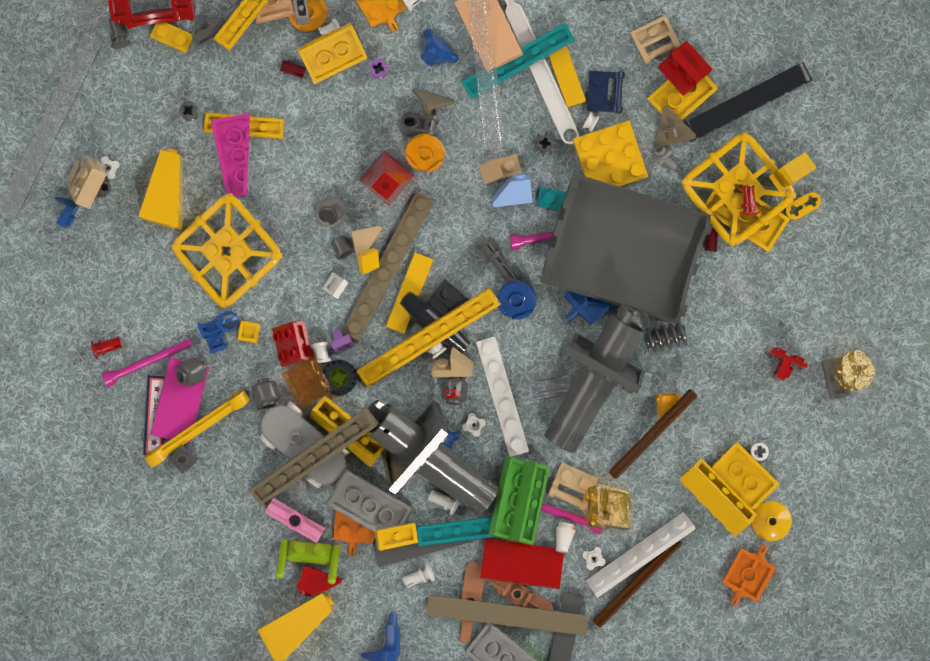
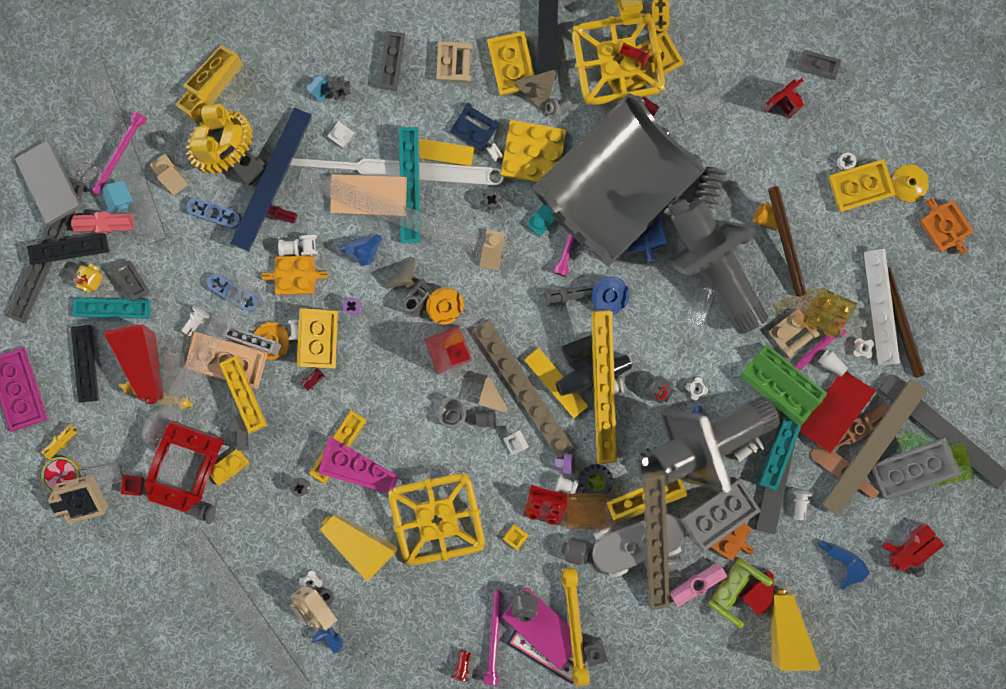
camera: 60 degrees left, 0 degrees up
(213, 331) = (499, 567): blue piece -> none
(368, 261) = (511, 403): yellow tile -> none
(396, 536) = (758, 505): yellow plate -> none
(456, 366) = (640, 378): tan slope -> none
(502, 396) = (685, 351): white plate -> none
(514, 191) = (518, 248): light blue slope -> none
(684, 68) = (492, 48): red bracket -> none
(718, 497) = (869, 216): yellow brick -> none
(864, 367) = (826, 37): clear yellow plate -> none

